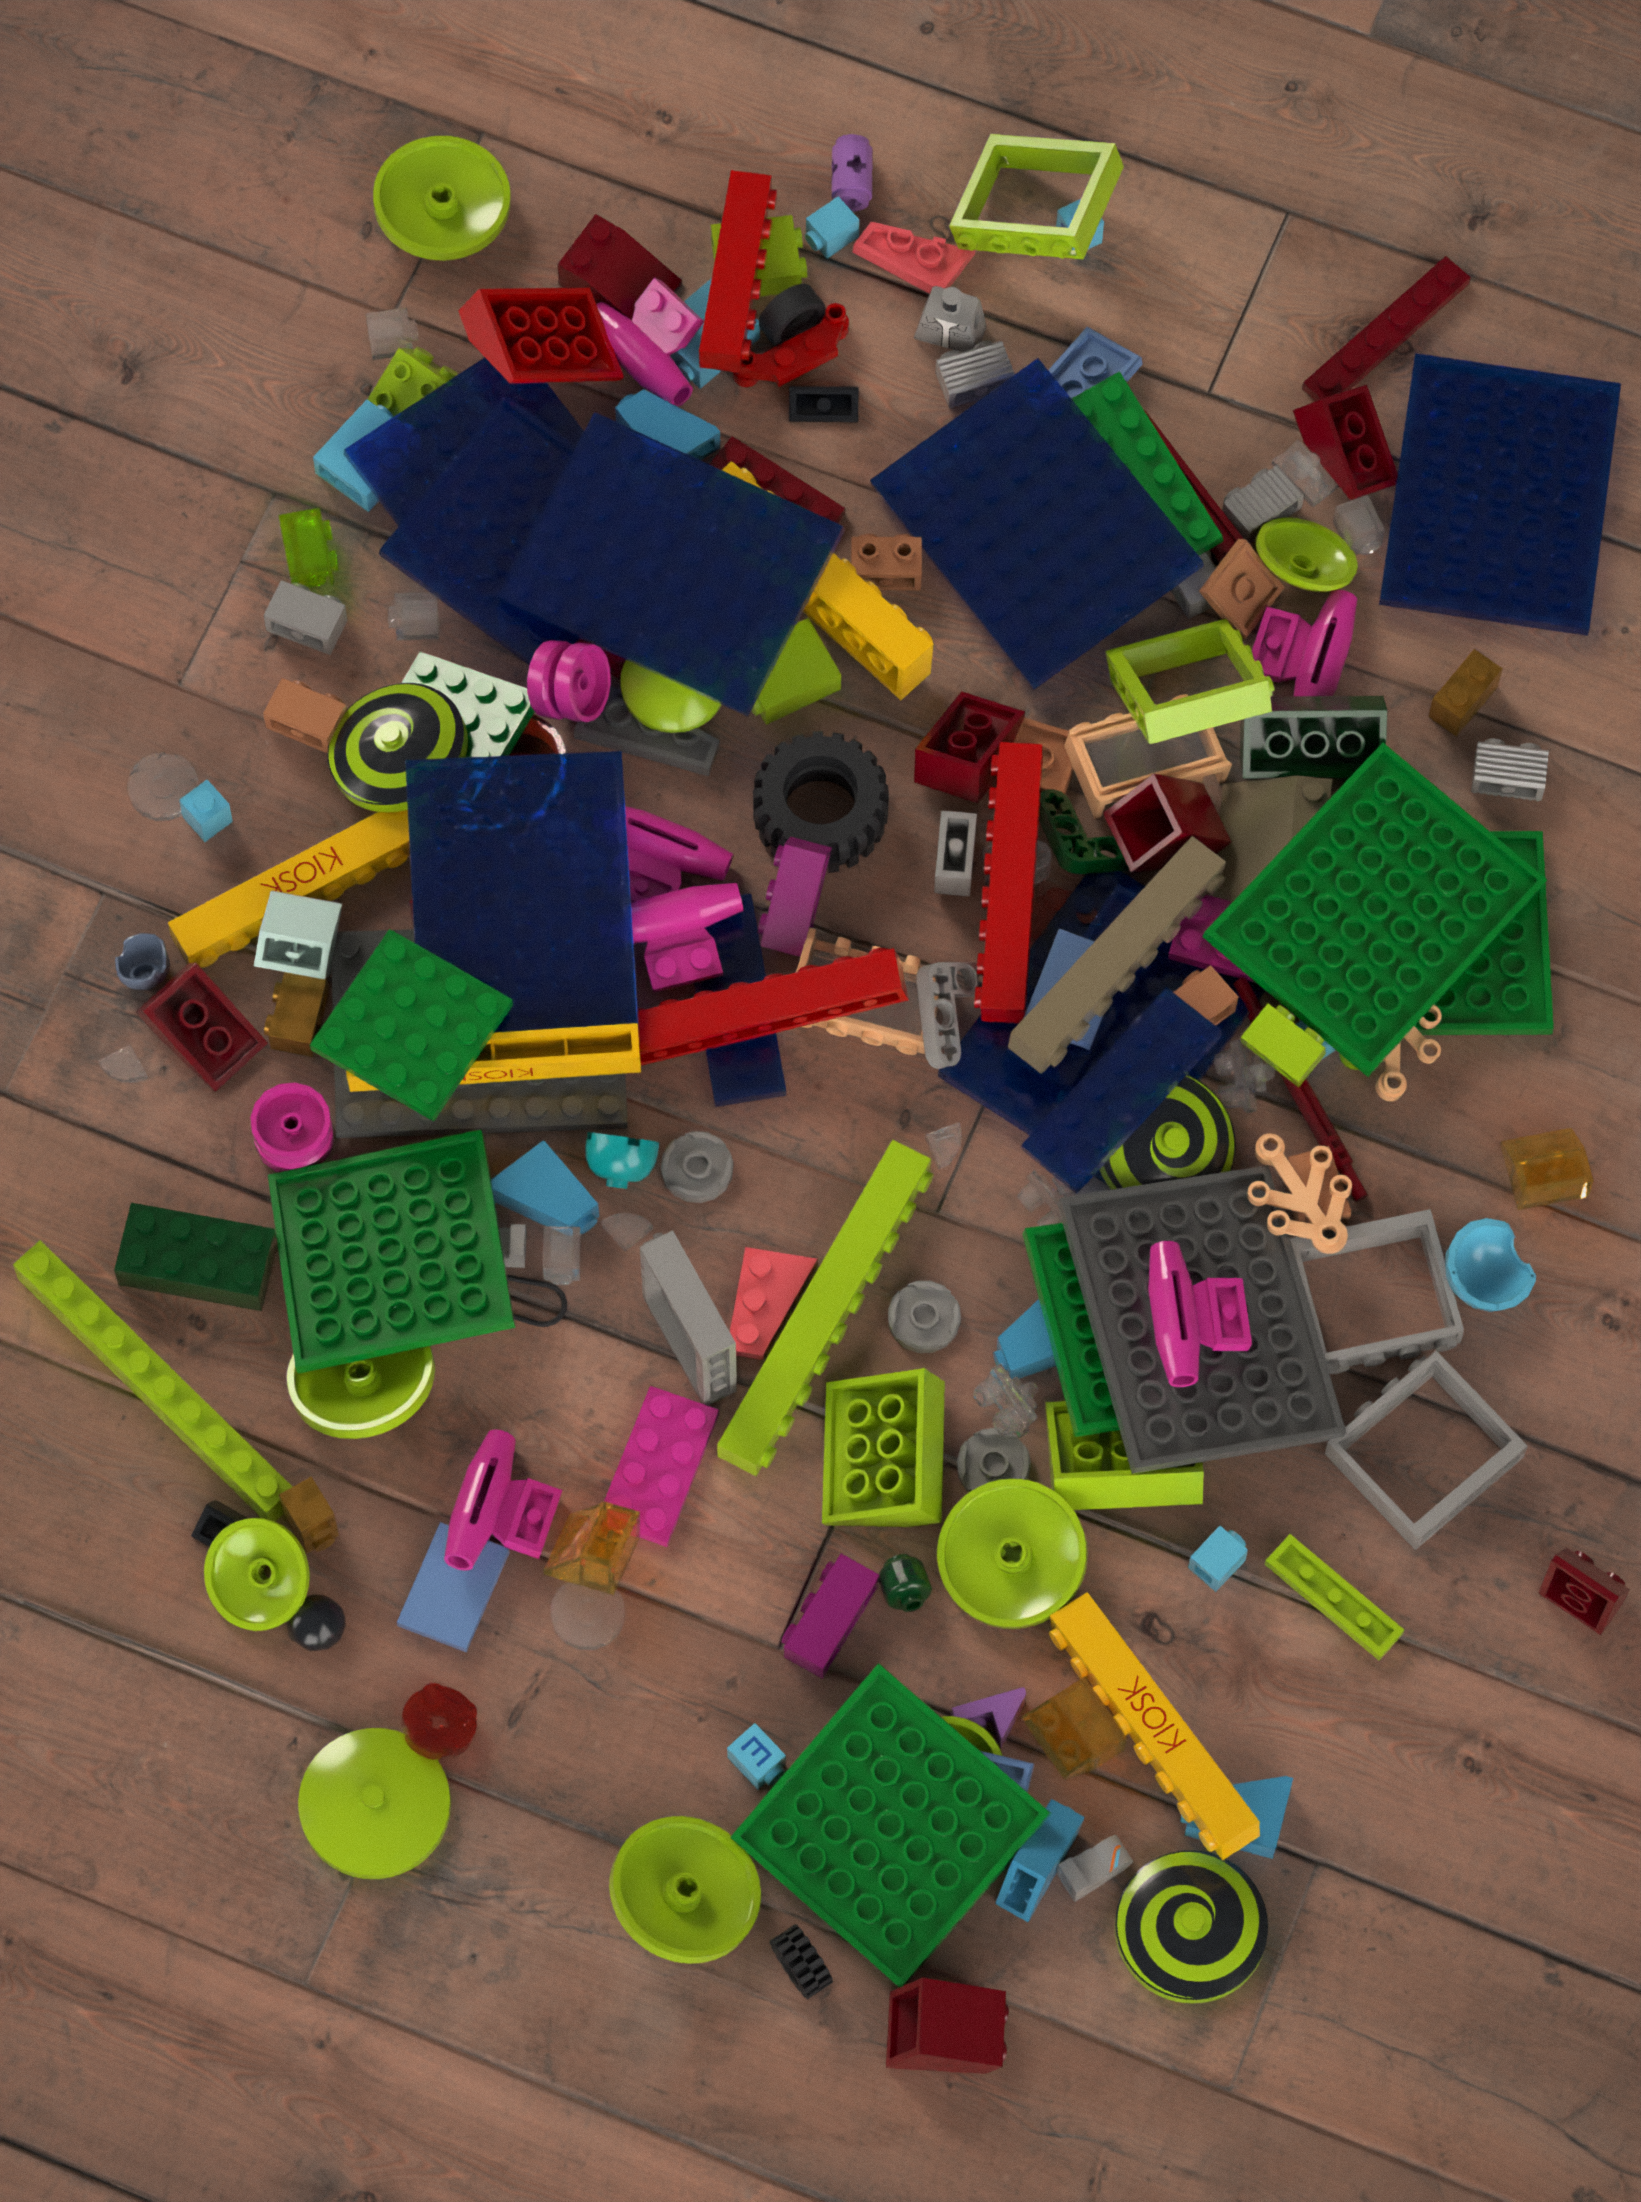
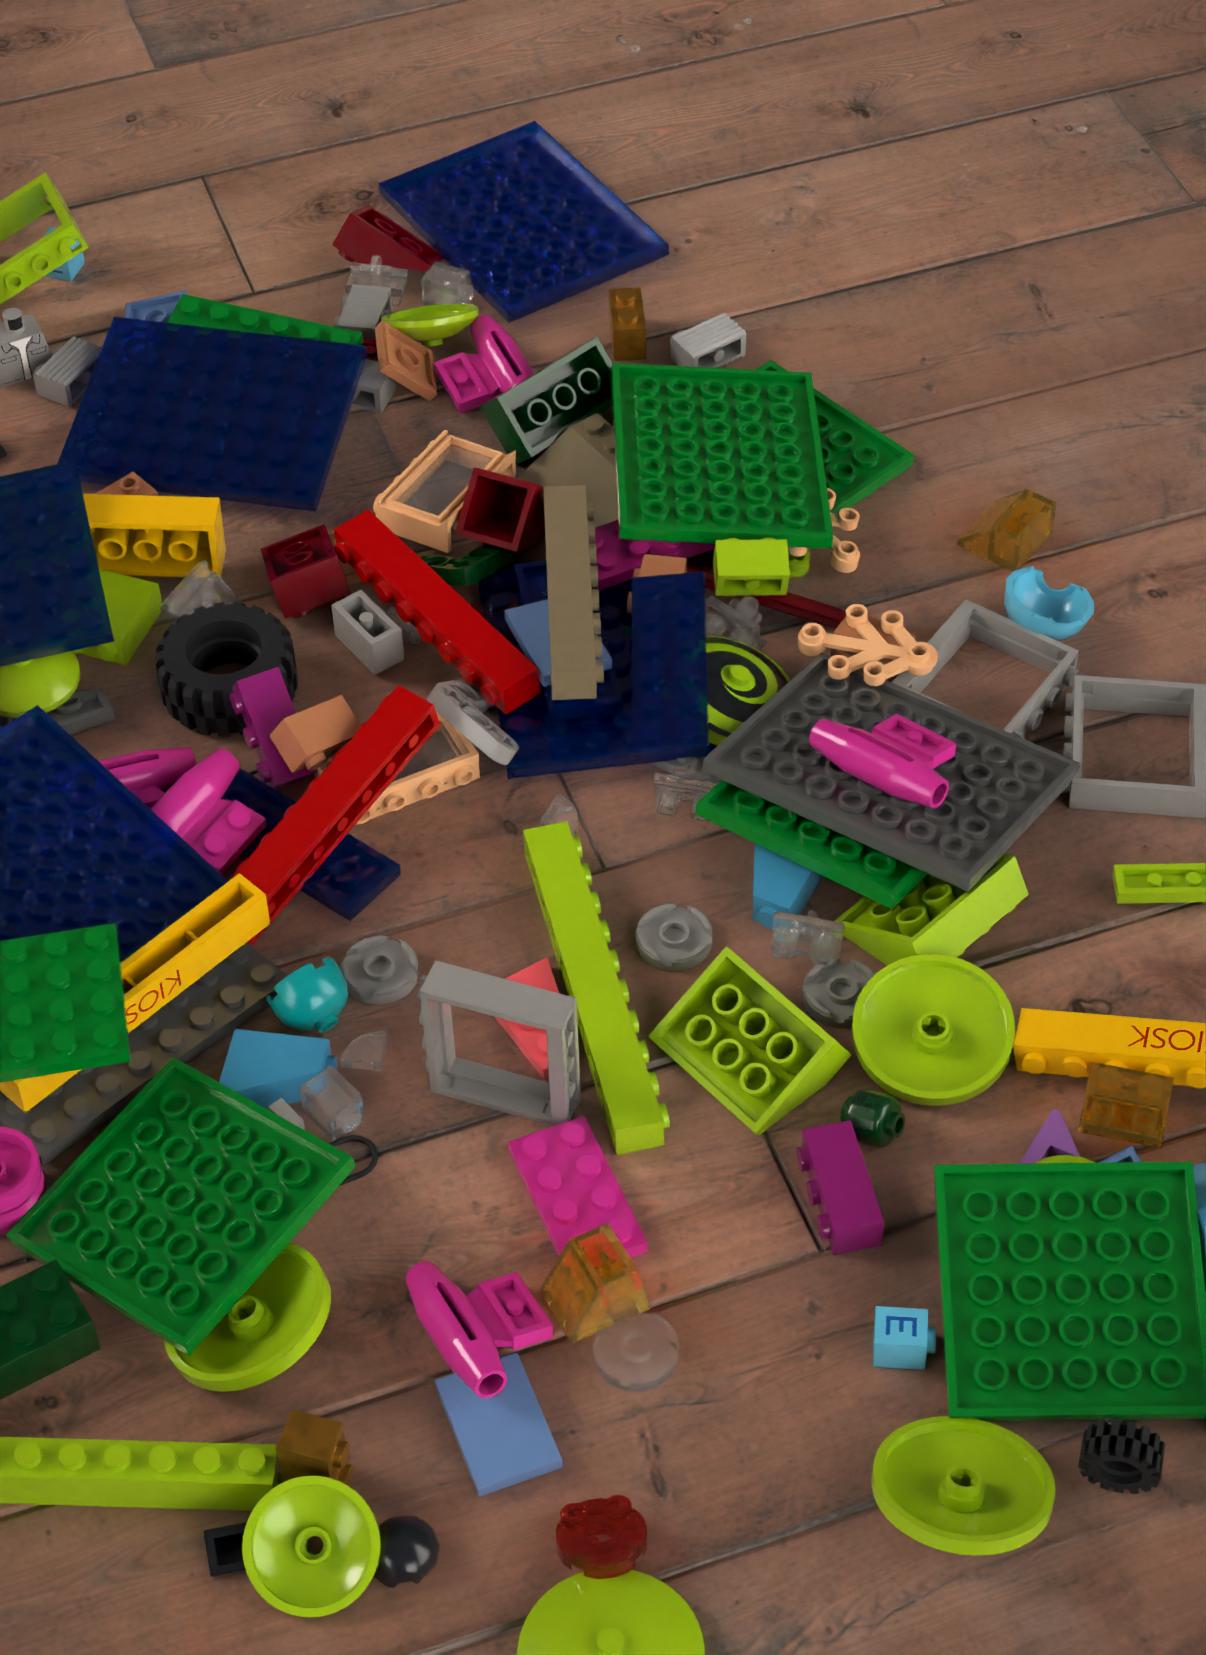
camera: 40 degrees left, 20 degrees down
(810, 935) = (315, 734): none -> nougat brick
(861, 712) = (197, 590): none -> clear plate
(1198, 710) = (403, 441): lime window -> none
(1218, 1557) = (1082, 920): medium azure brick -> none
(1388, 330) = (343, 186): dark red plate -> none

